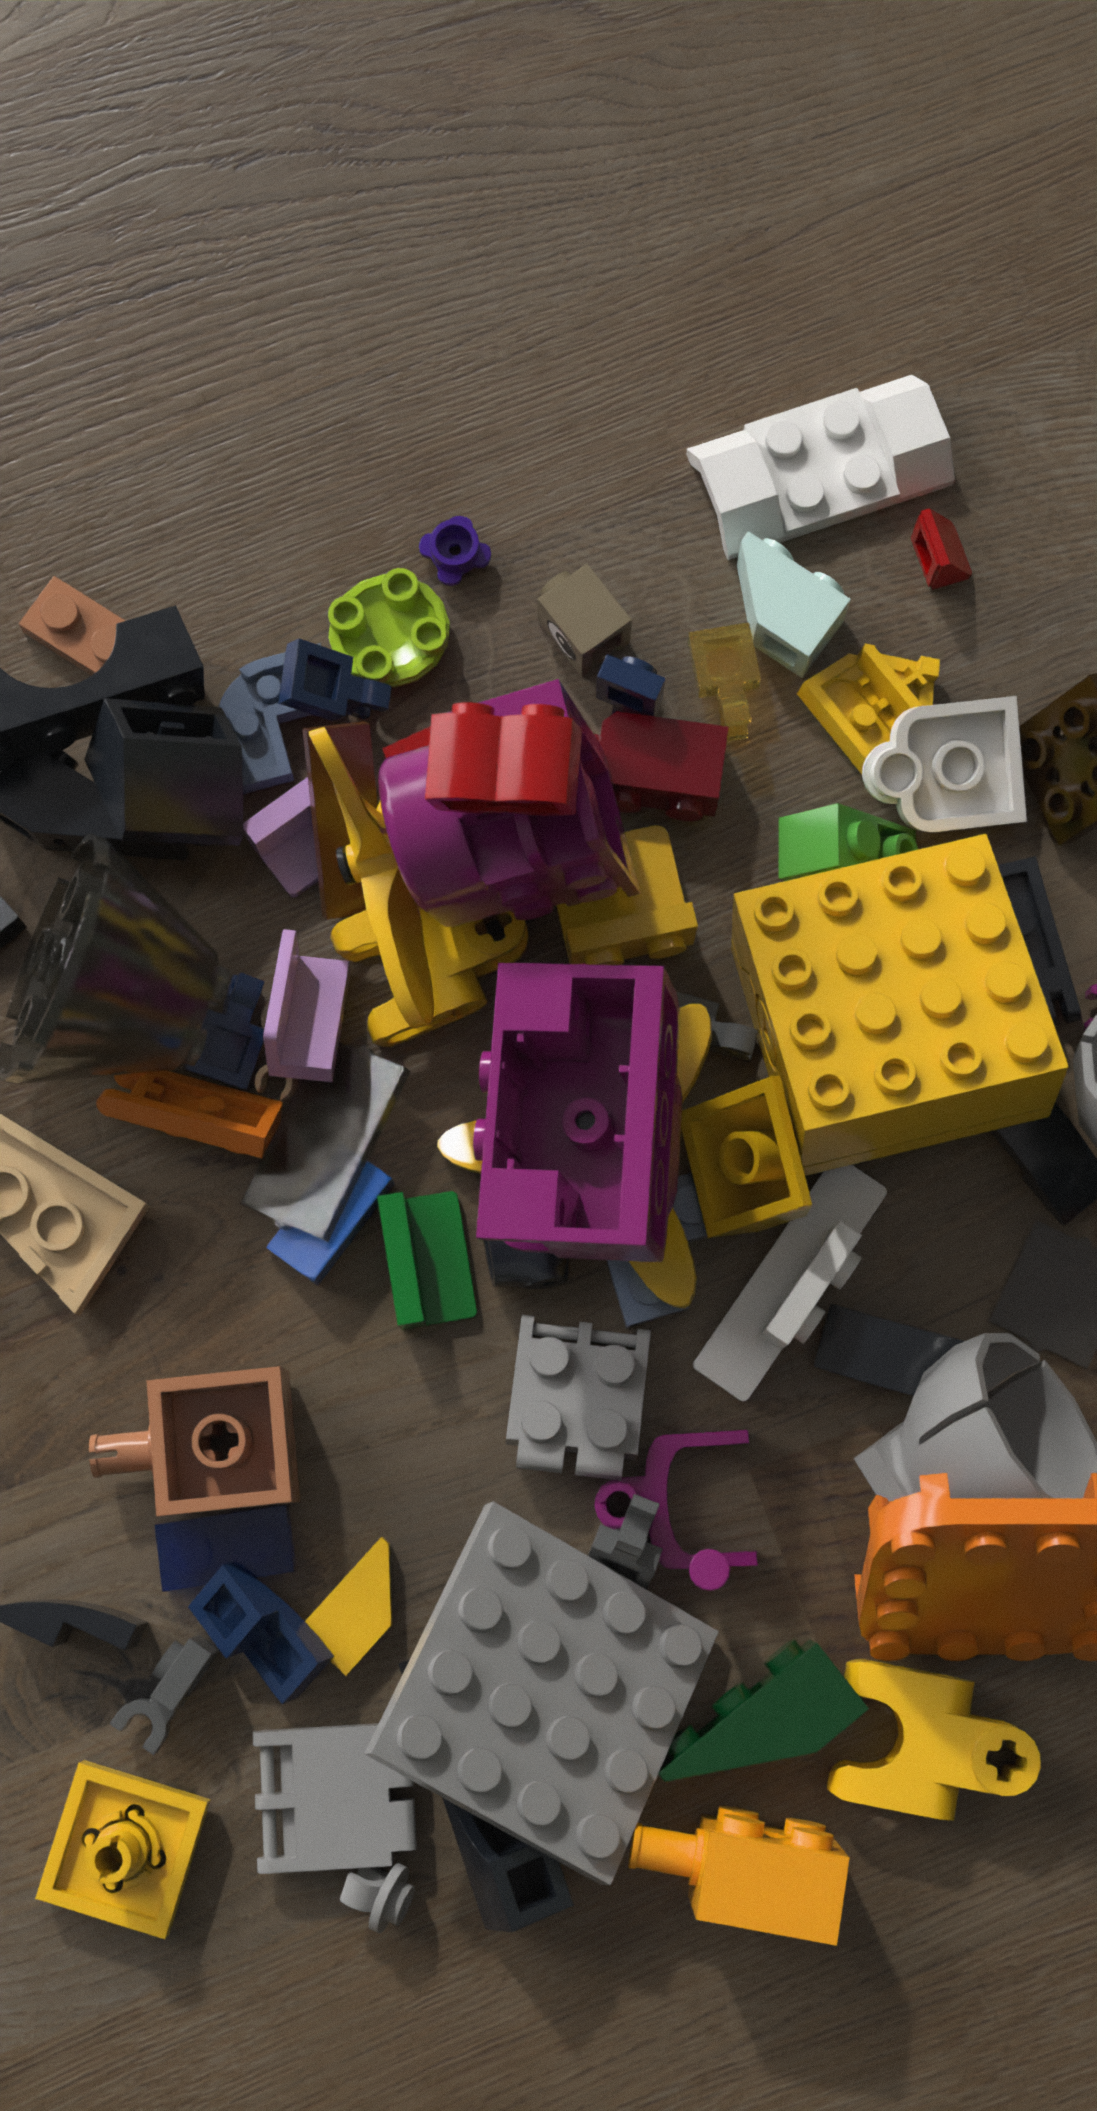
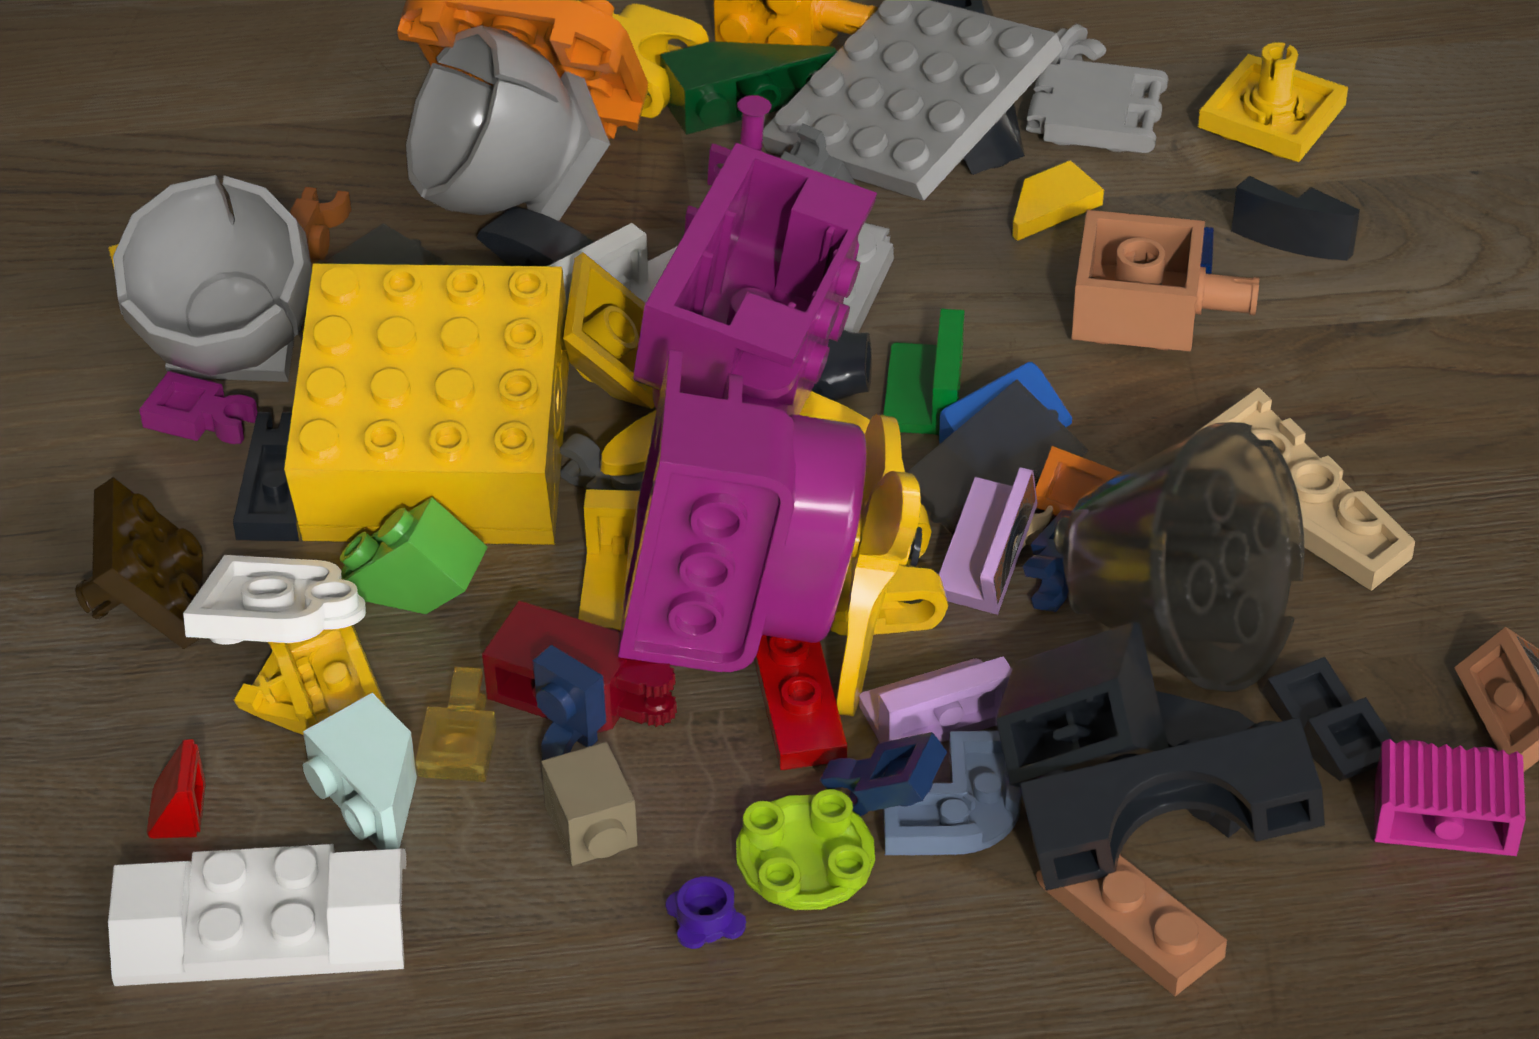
camera: 165 degrees left, 35 degrees down
(179, 1675) = (1207, 173): dark grey plate -> none
(253, 1620) = (1129, 189): dark blue slope -> none
(328, 822) = (903, 662): reddish brown tile -> none
(503, 761) = (735, 390): red brick -> none

